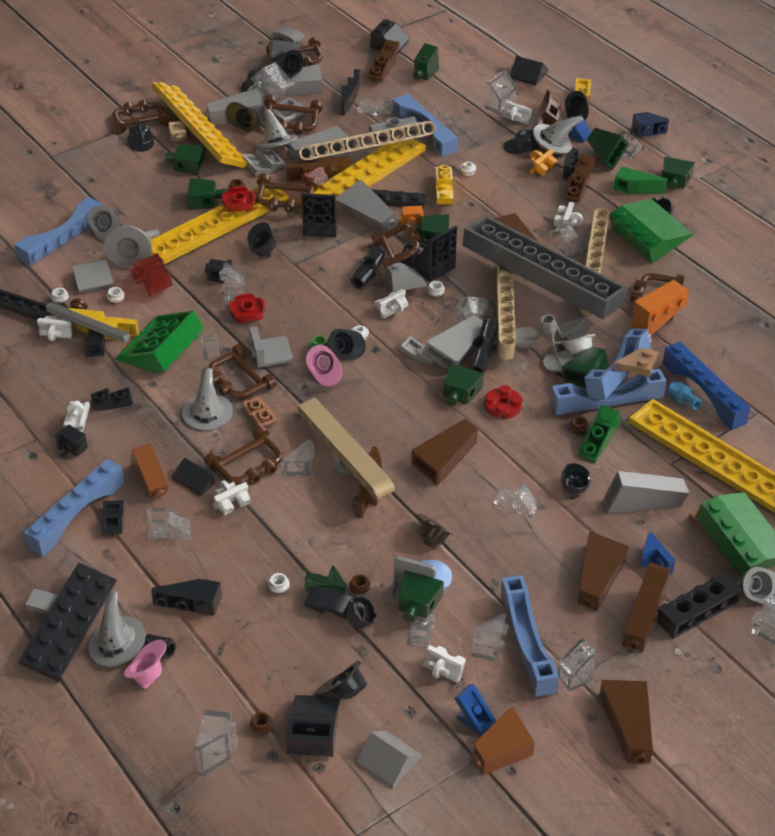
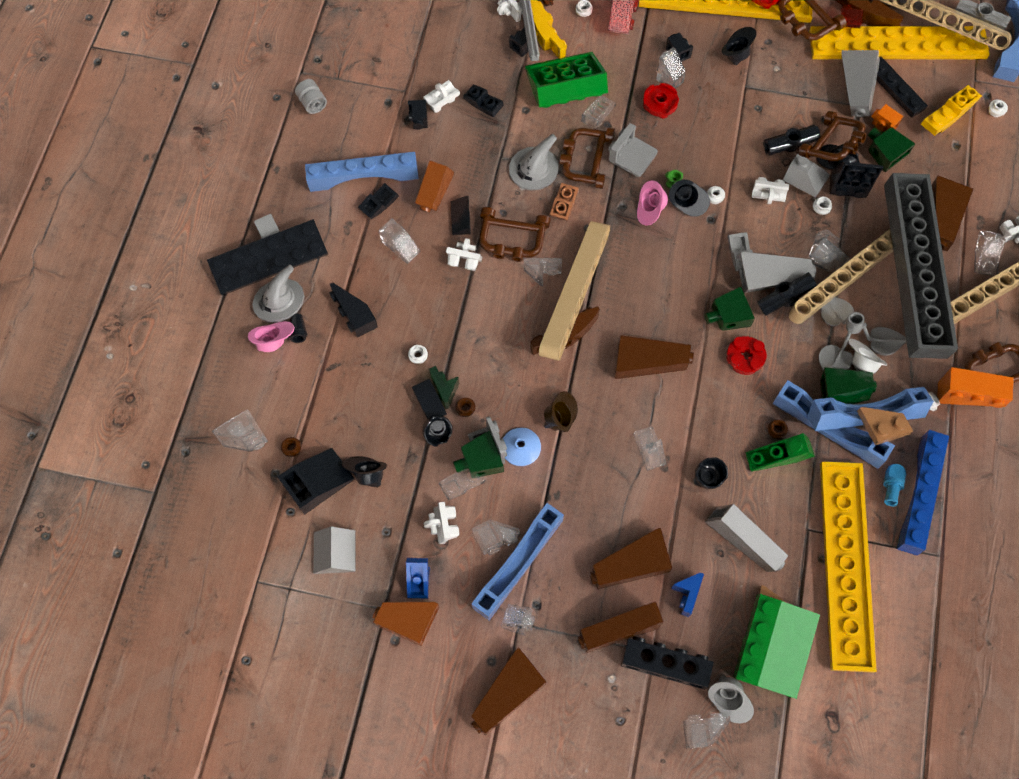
camera: 50 degrees right, 25 degrees up
(319, 215) = (805, 60): black slope -> none

